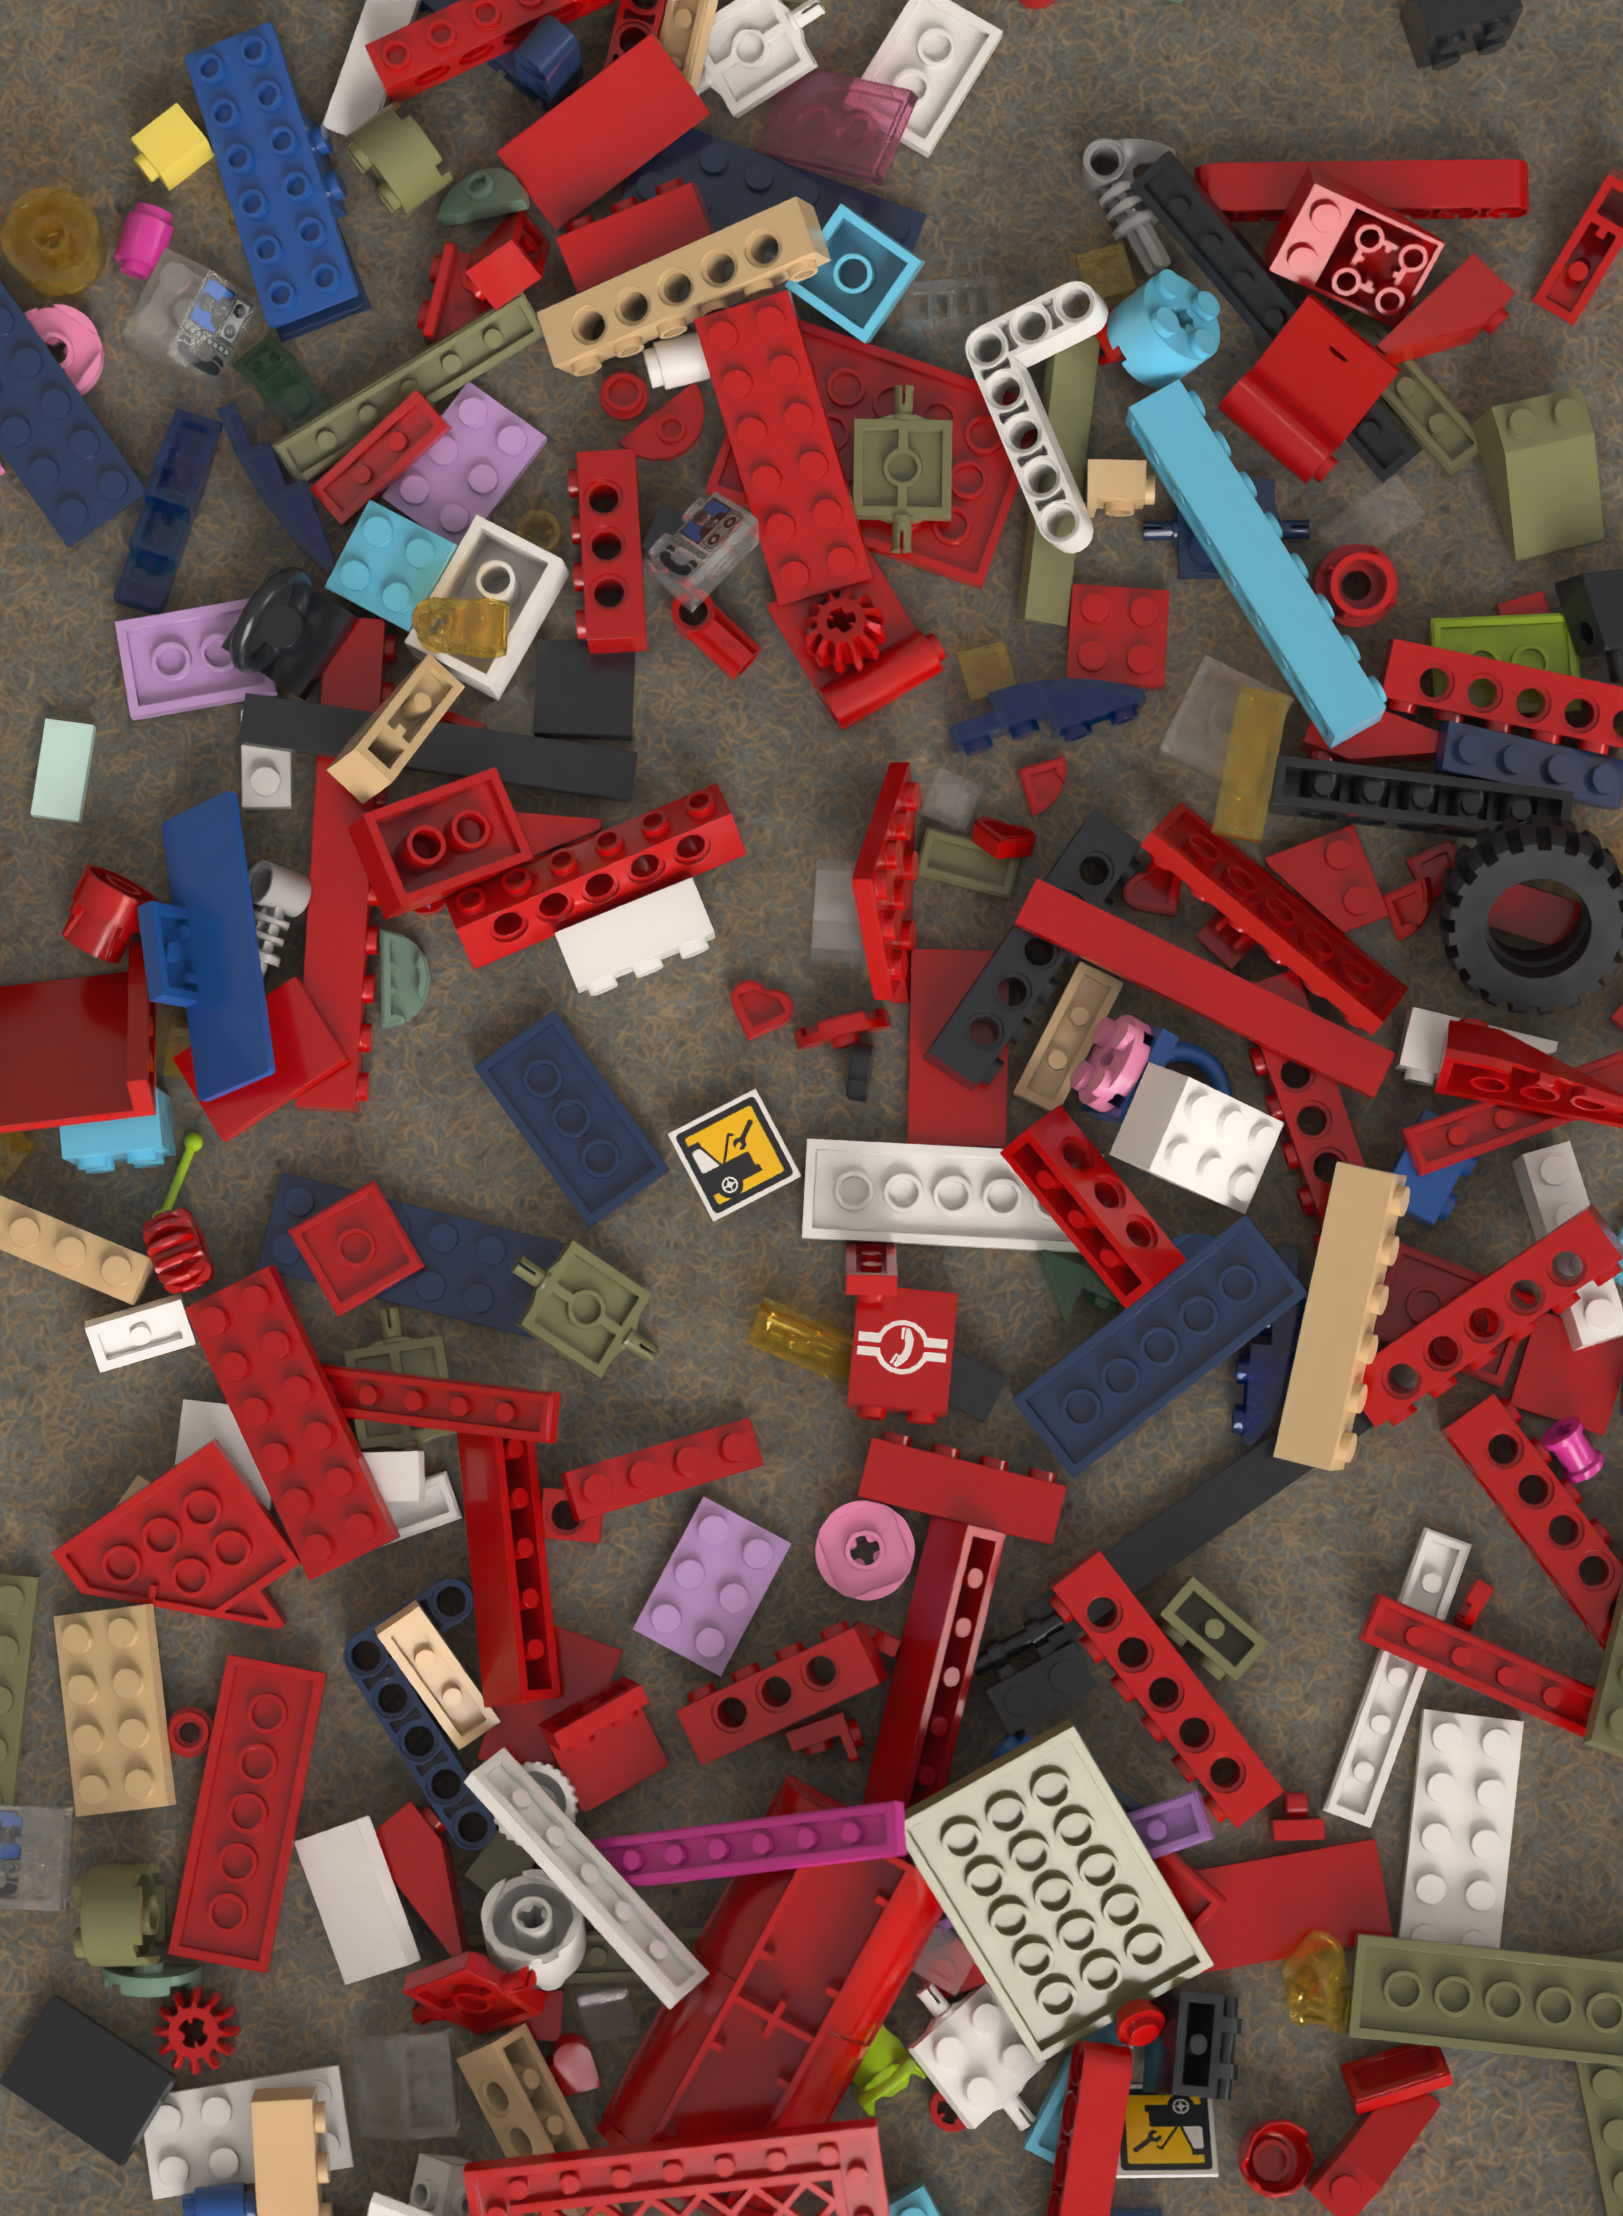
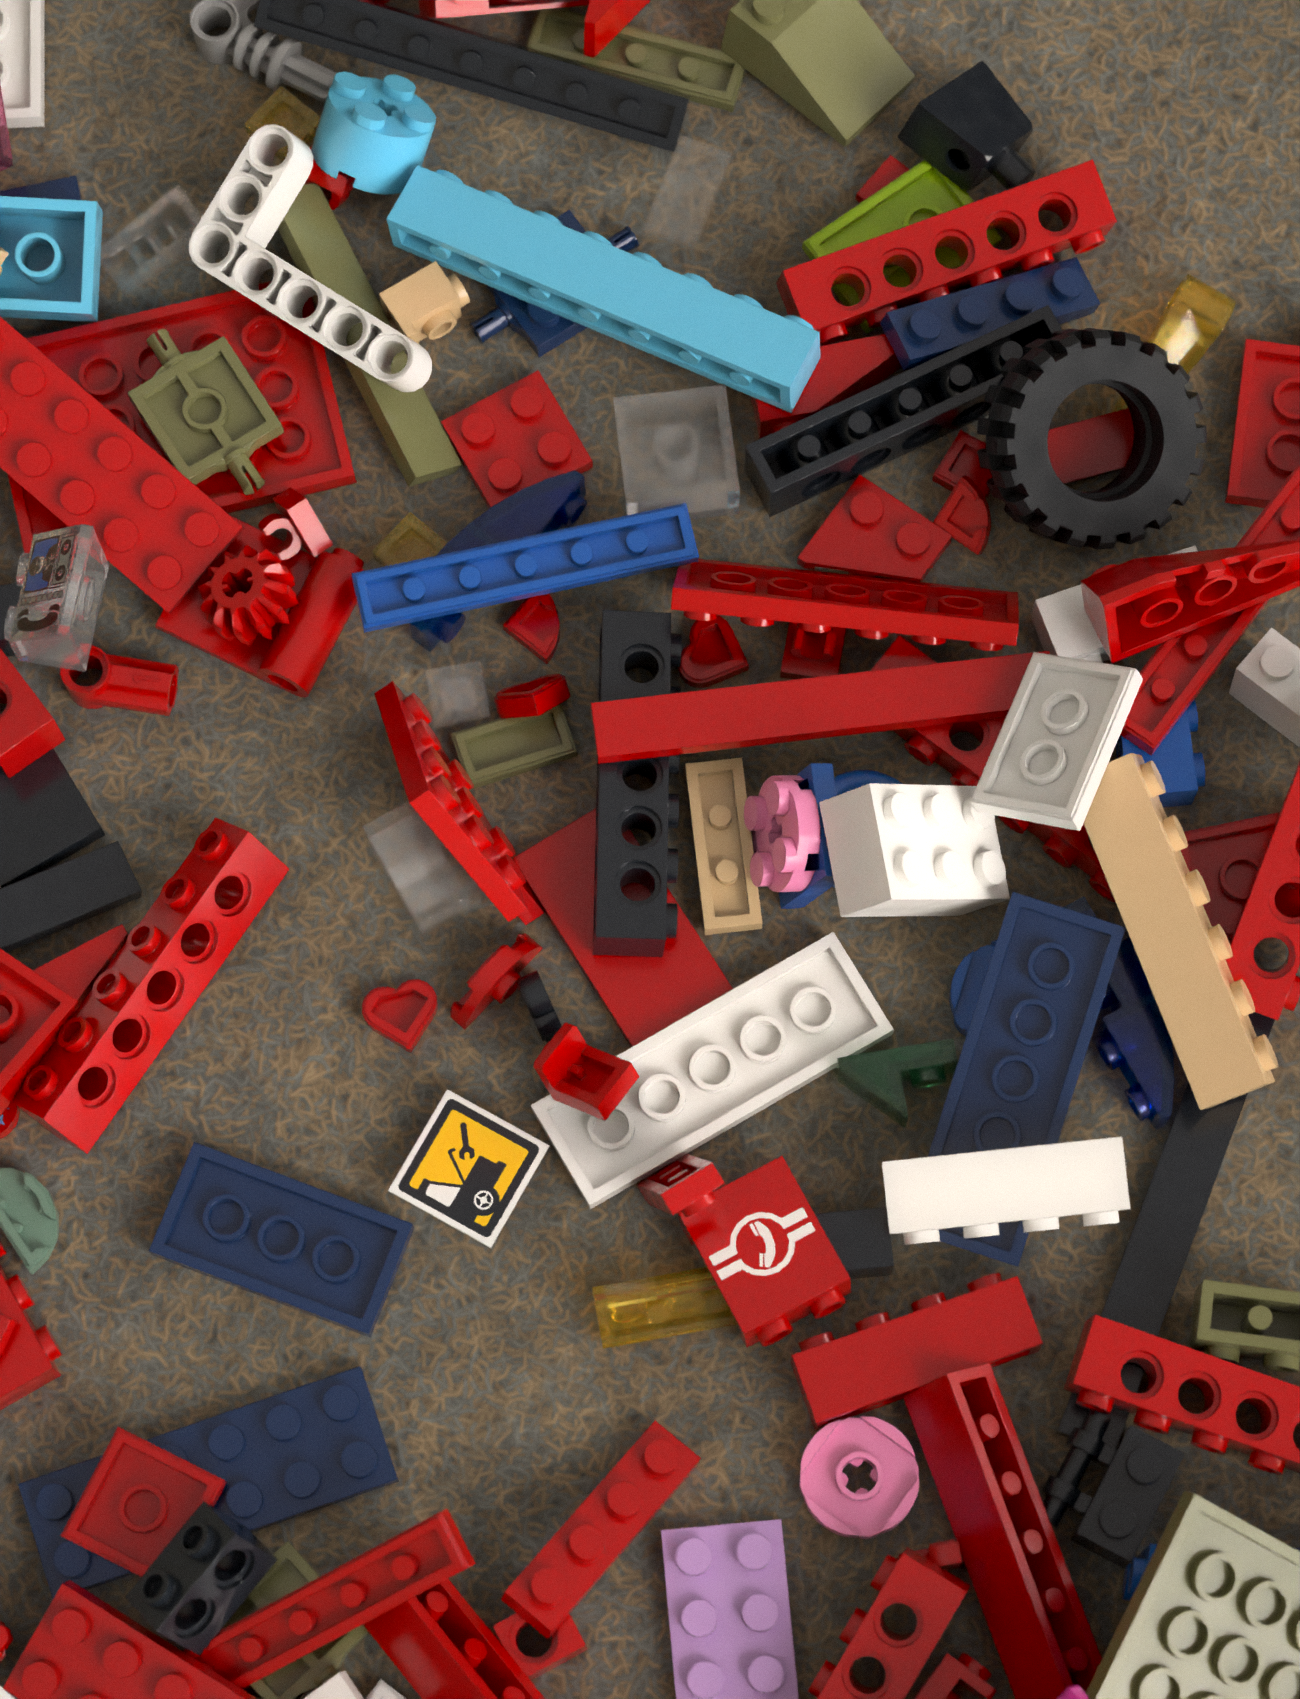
camera: 30 degrees left, 10 degrees down
(364, 1325) = (201, 1578): none -> black brick
(583, 1309) = (416, 1419): olive plate -> none
(636, 937) = (231, 1019): white brick -> none
(857, 1143) = (582, 1074): none -> red bracket
(917, 598) = (300, 523): none -> tile
(1058, 741) = (524, 567): none -> blue tile
(1092, 1206) = (857, 982): red brick -> none
(1099, 1420) = (1005, 1187): none -> white brick
(1250, 764) = (725, 467): clear yellow plate -> none
(1305, 394) = (546, 111): red door -> none
(1350, 1127) = (1056, 740): none -> white tile
(1379, 578) = (723, 230): red piece -> none

